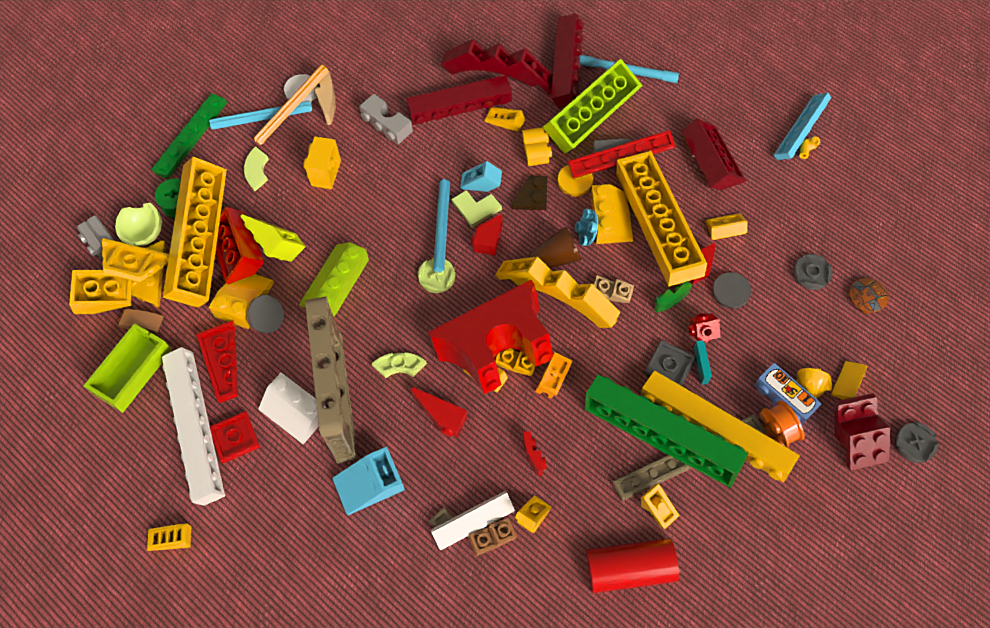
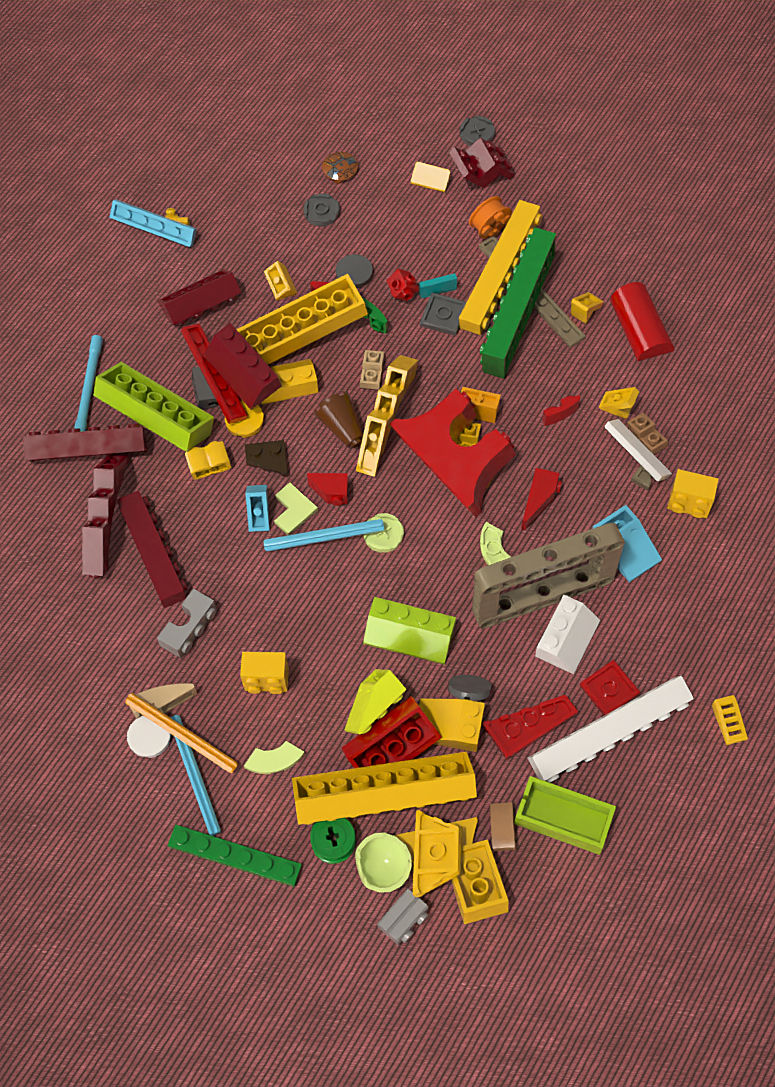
camera: 100 degrees left, 0 degrees up
(403, 557) = (692, 494): none -> yellow brick
(514, 123) = (166, 484): yellow slope -> none
(587, 227) = (308, 393): medium azure dish -> none
(617, 170) = (241, 367): none -> dark red slope
(780, 386) = (454, 220): brick -> none
(814, 381) = (440, 200): yellow helmet -> none

